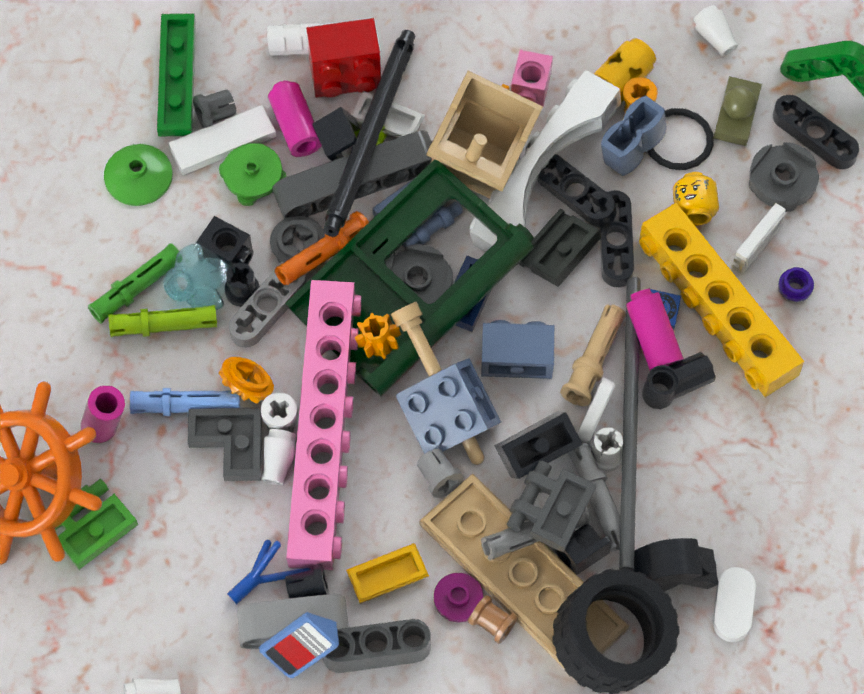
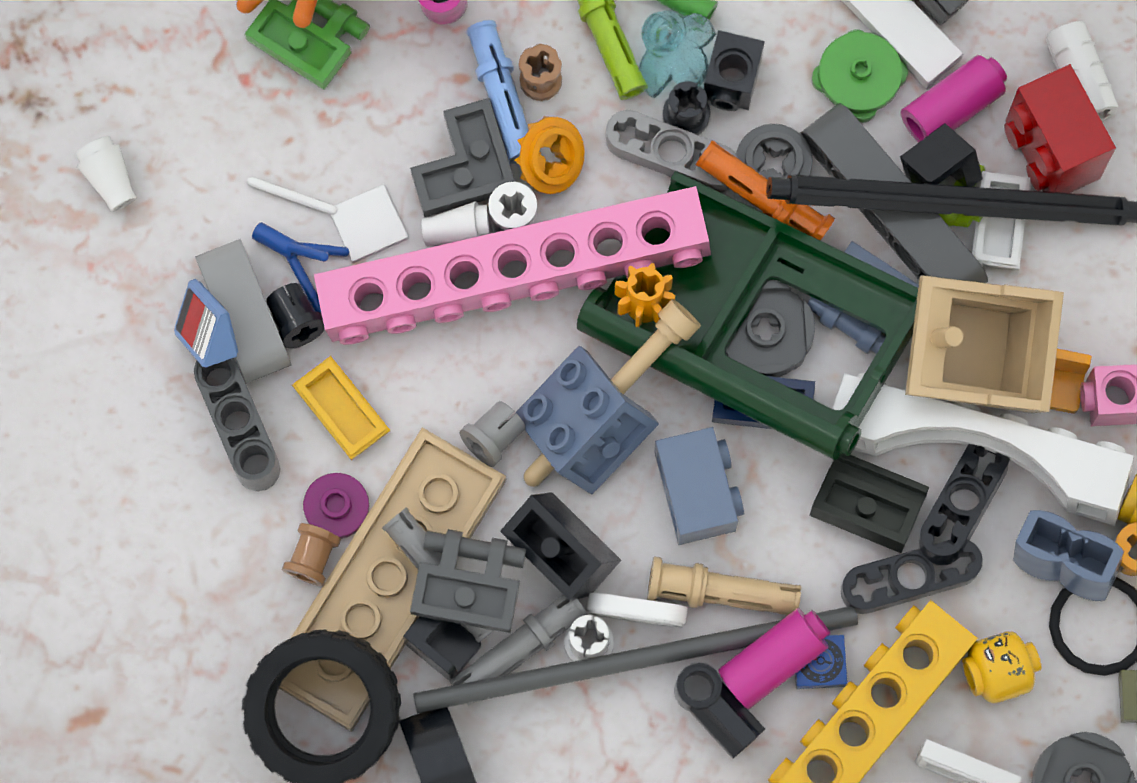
camera: 75 degrees right, 10 degrees up
(181, 361) = (549, 82): none -> medium nougat bush
(248, 524) = (364, 222): none -> white piece

